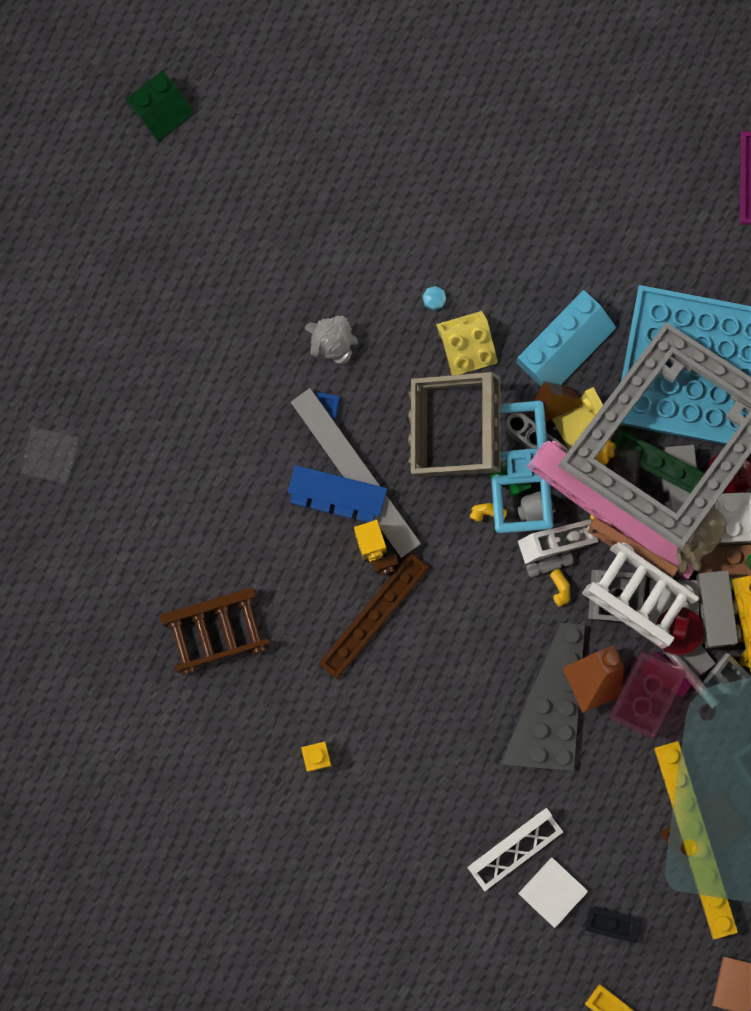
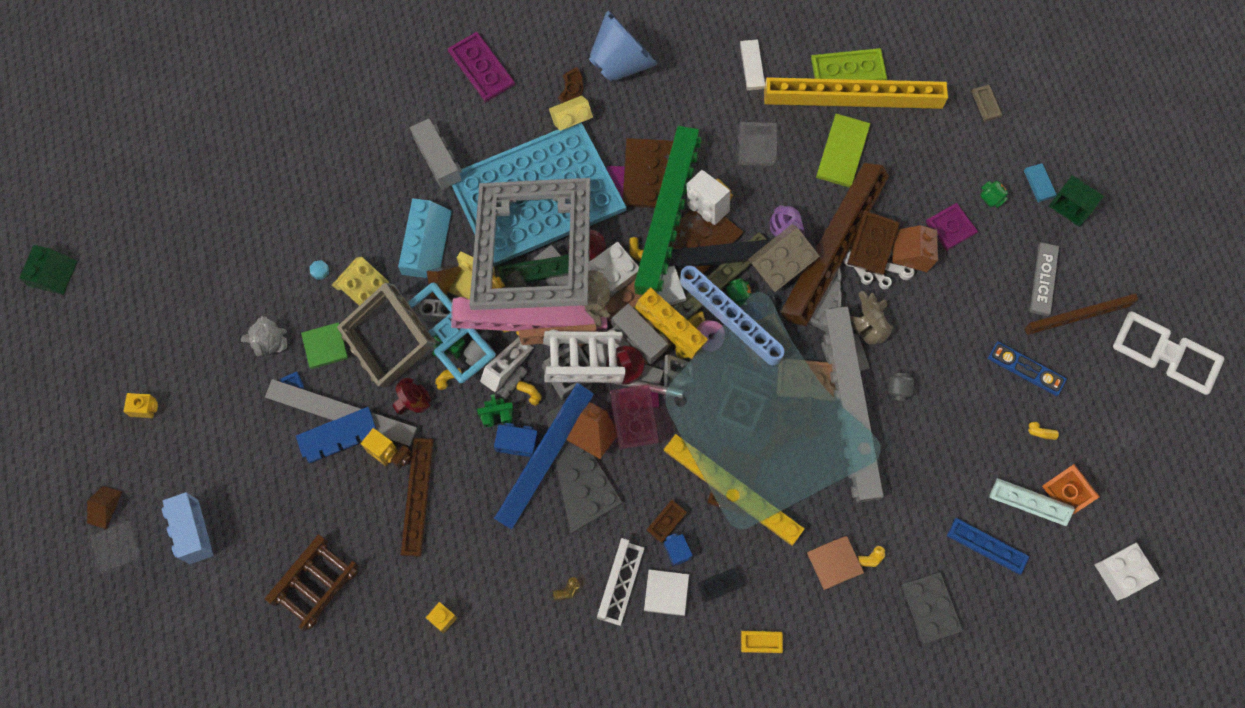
camera: 40 degrees left, 10 degrees down
(62, 404) = (102, 506): none -> reddish brown slope
(130, 489) = (187, 528): none -> light blue brick
(162, 323) = (140, 405): none -> yellow brick
(385, 387) = (324, 346): none -> bright green tile
(437, 508) = (411, 397): none -> dark red tile
(457, 820) = (569, 590): none -> clear yellow arm
(500, 581) = (495, 408): none -> green hips
(511, 629) = (516, 440): none -> blue brick
(529, 667) = (543, 456): none -> blue tile
(594, 858) = (677, 549): none -> blue brick
(604, 822) = (666, 521): none -> reddish brown plate
(643, 253) = (435, 153): none -> light grey brick

